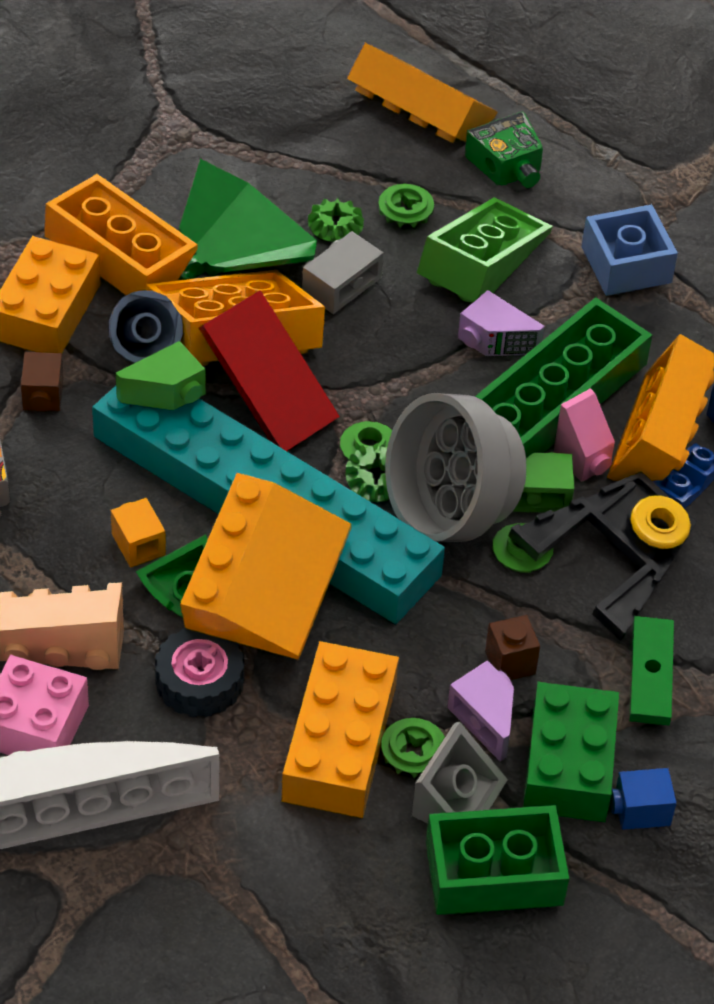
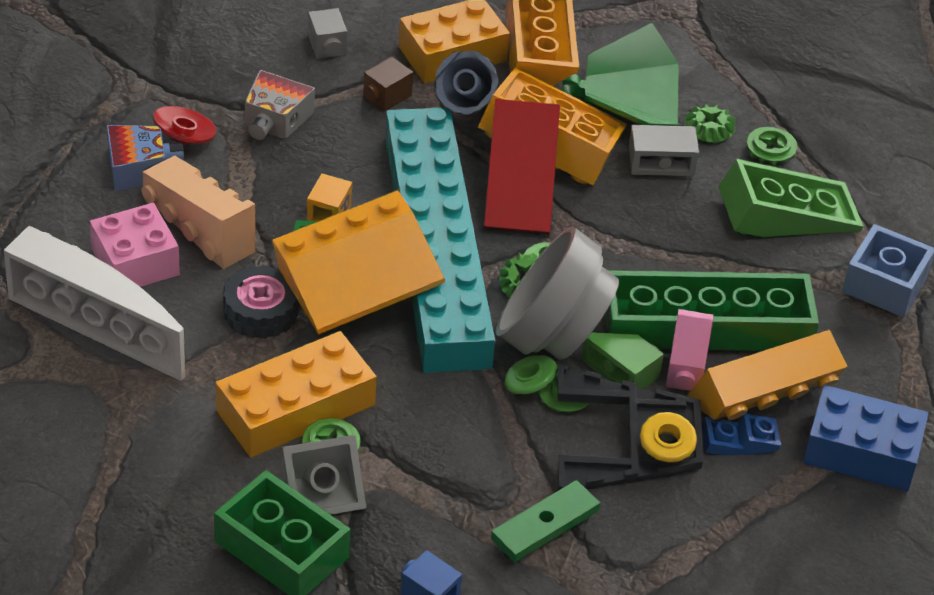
camera: 45 degrees right, 5 degrees down
(162, 379) = (437, 117): bright green slope -> none
(418, 94) = (874, 87): light orange slope -> none
(474, 550) = (530, 374): none -> bright green piece
(484, 706) = (406, 454): lavender slope -> none
(498, 327) = (725, 248): lavender slope -> none
(506, 150) = (890, 158): green torso -> none
(513, 647) = (467, 435): reddish brown brick -> none
(572, 750) = (420, 513): green brick -> none

